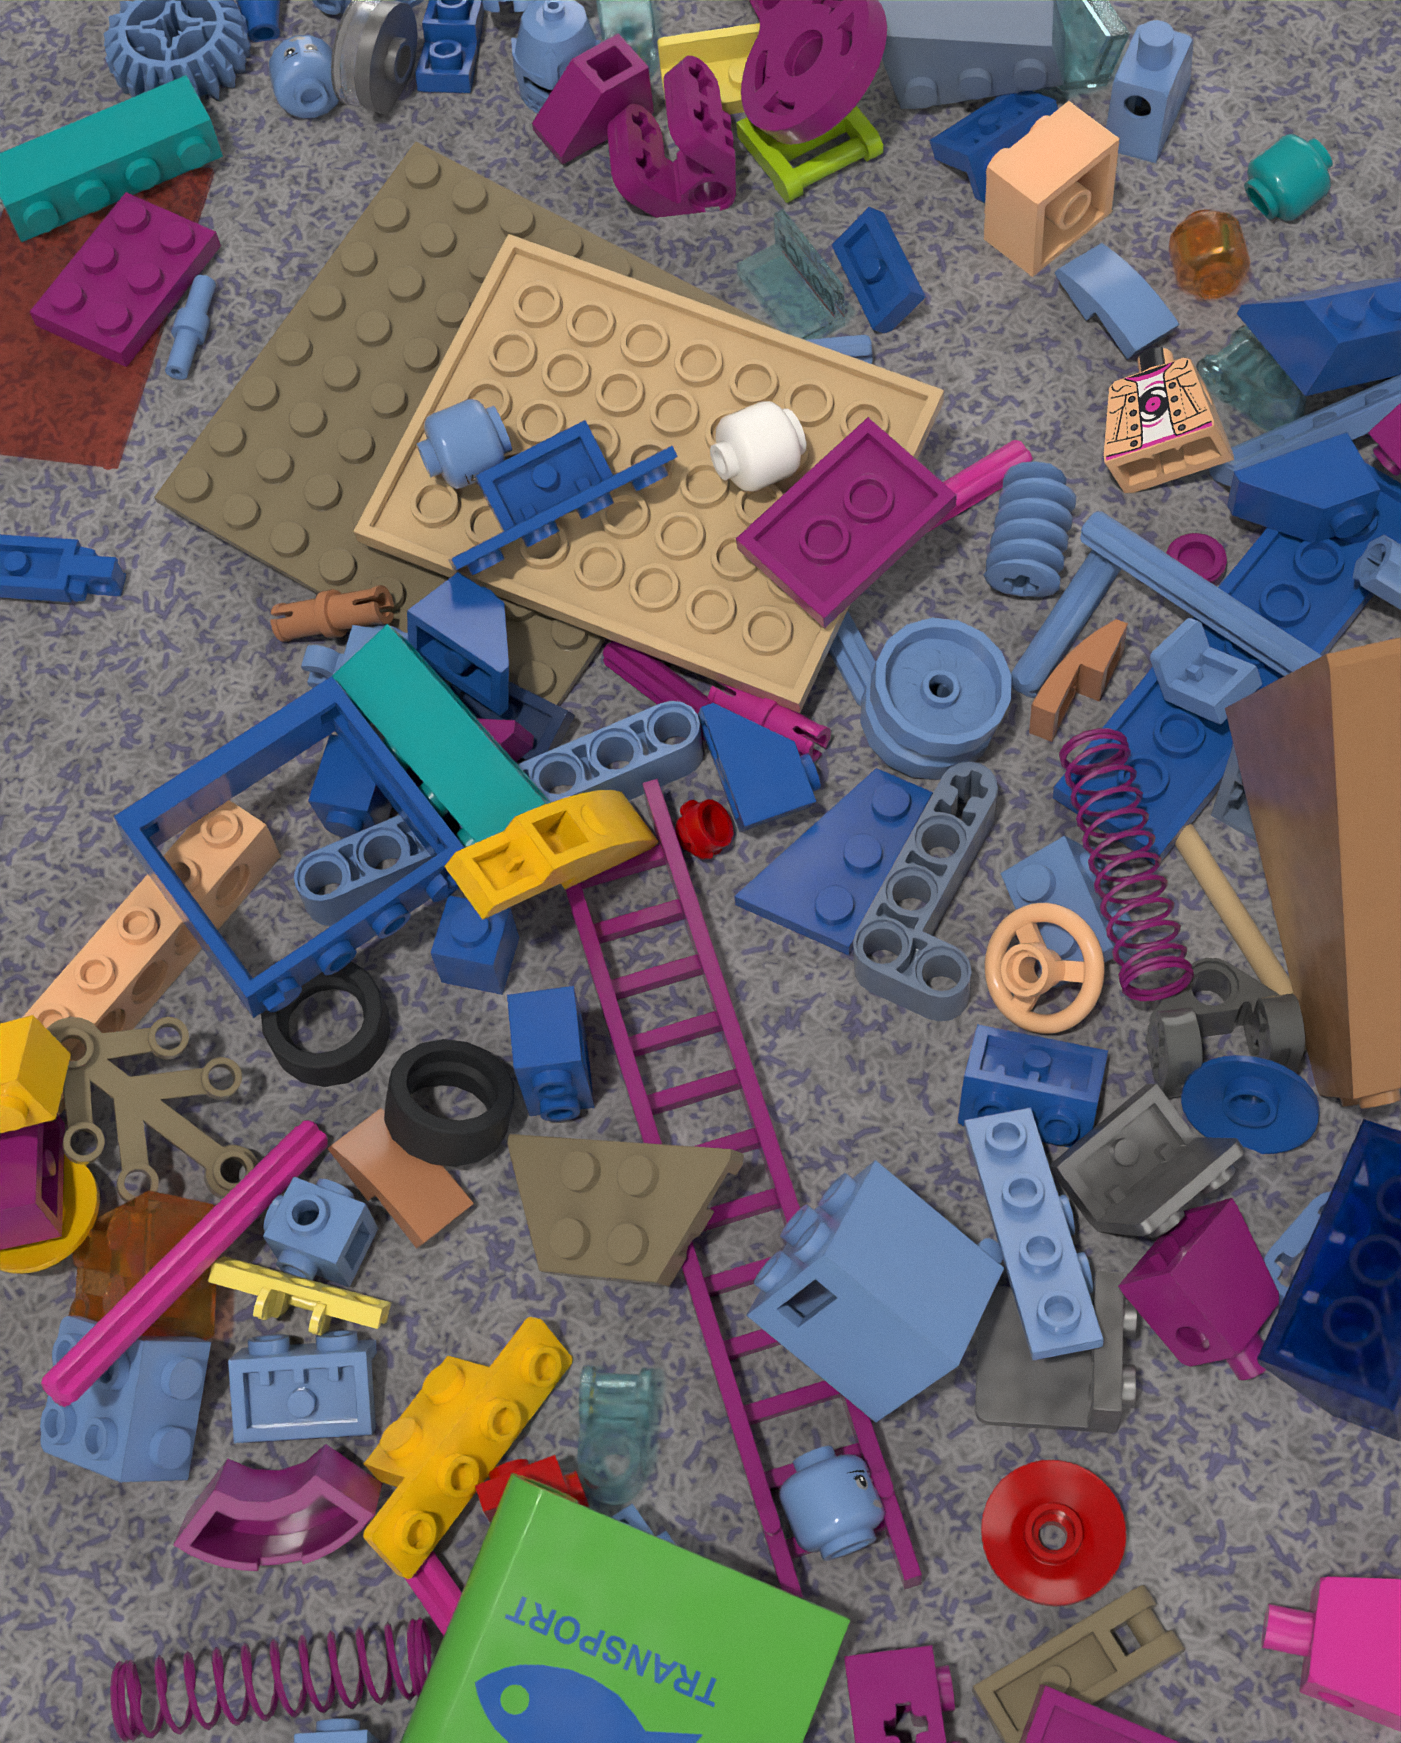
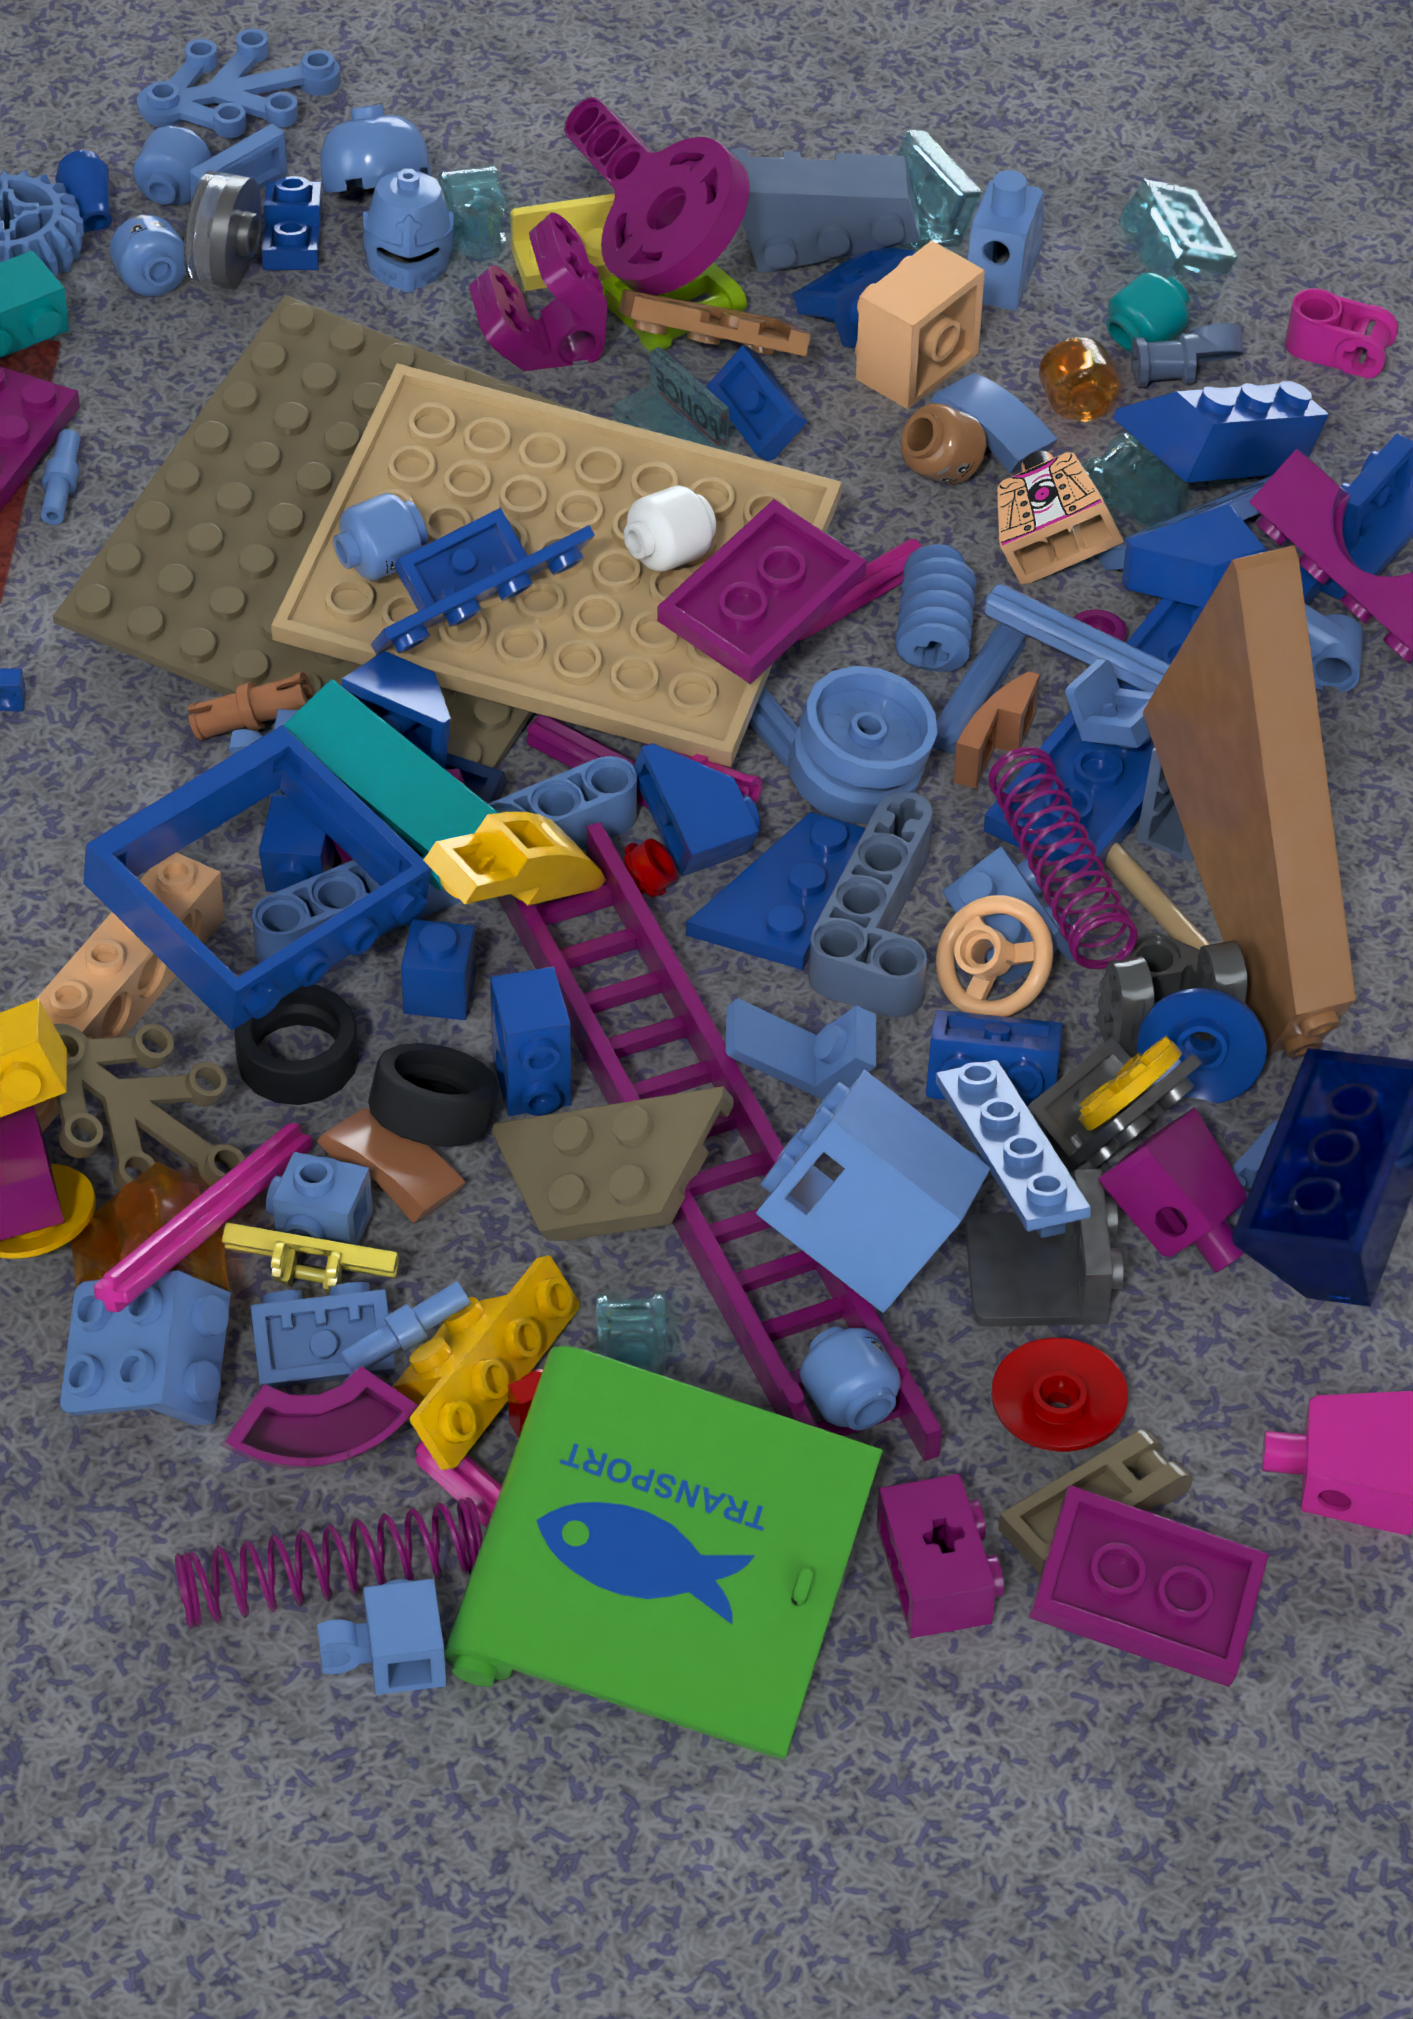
camera: 15 degrees left, 15 degrees down
(381, 1401) = (406, 1327): none -> medium blue bar
(590, 95) = (448, 261): magenta slope -> none
(829, 1076) = (798, 1056): none -> medium blue bracket
(846, 178) = (711, 323): none -> medium nougat wing
(1060, 329) = (943, 444): none -> medium nougat head
(1165, 1163) = (1130, 1082): none -> yellow wheel
(1315, 230) = (1180, 357): none -> sand blue connector
(1326, 78) = (1174, 230): none -> clear light blue bracket

